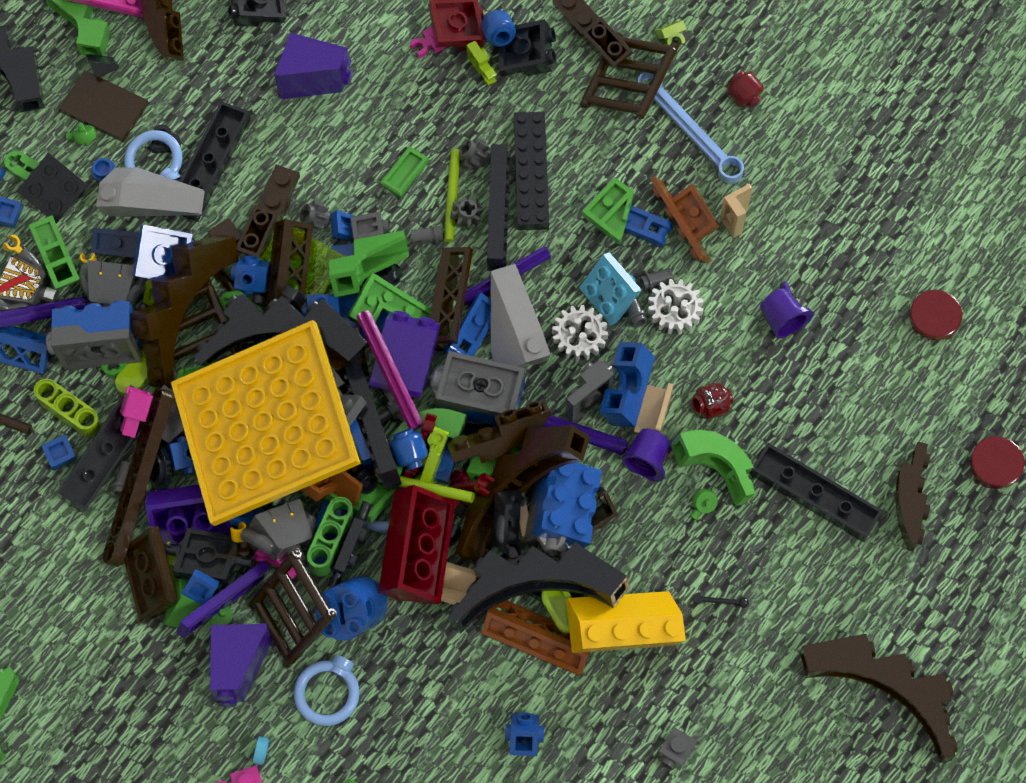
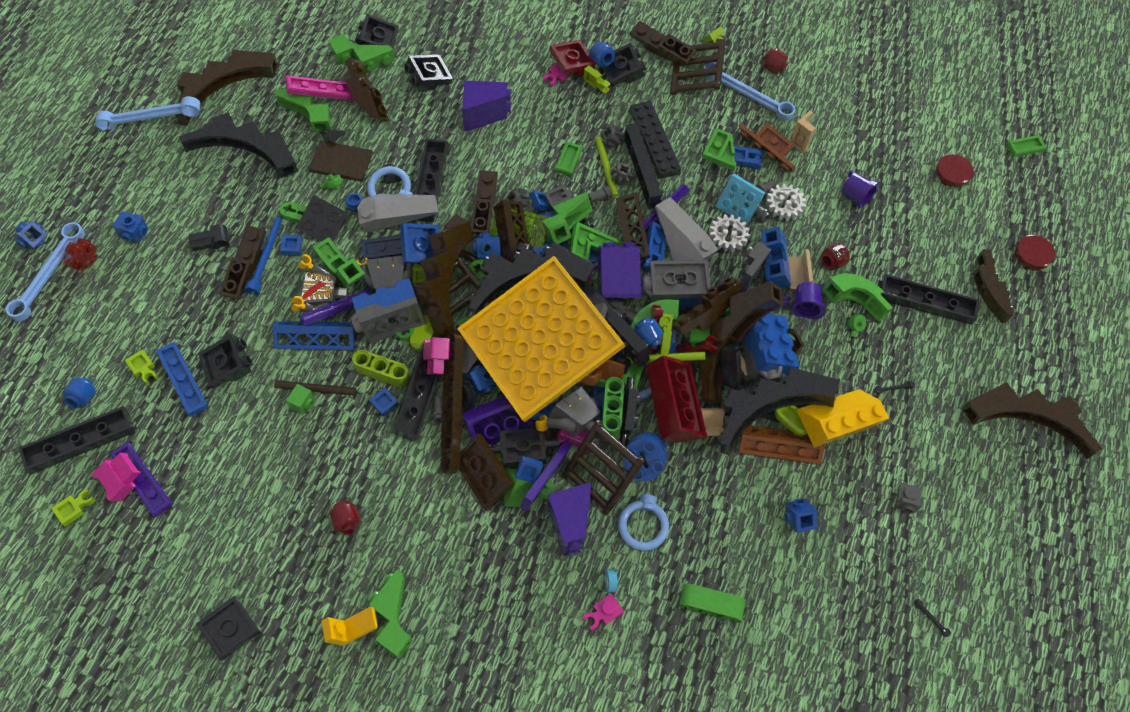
camera: 20 degrees left, 5 degrees down
(389, 370) = (616, 281): magenta axle -> none

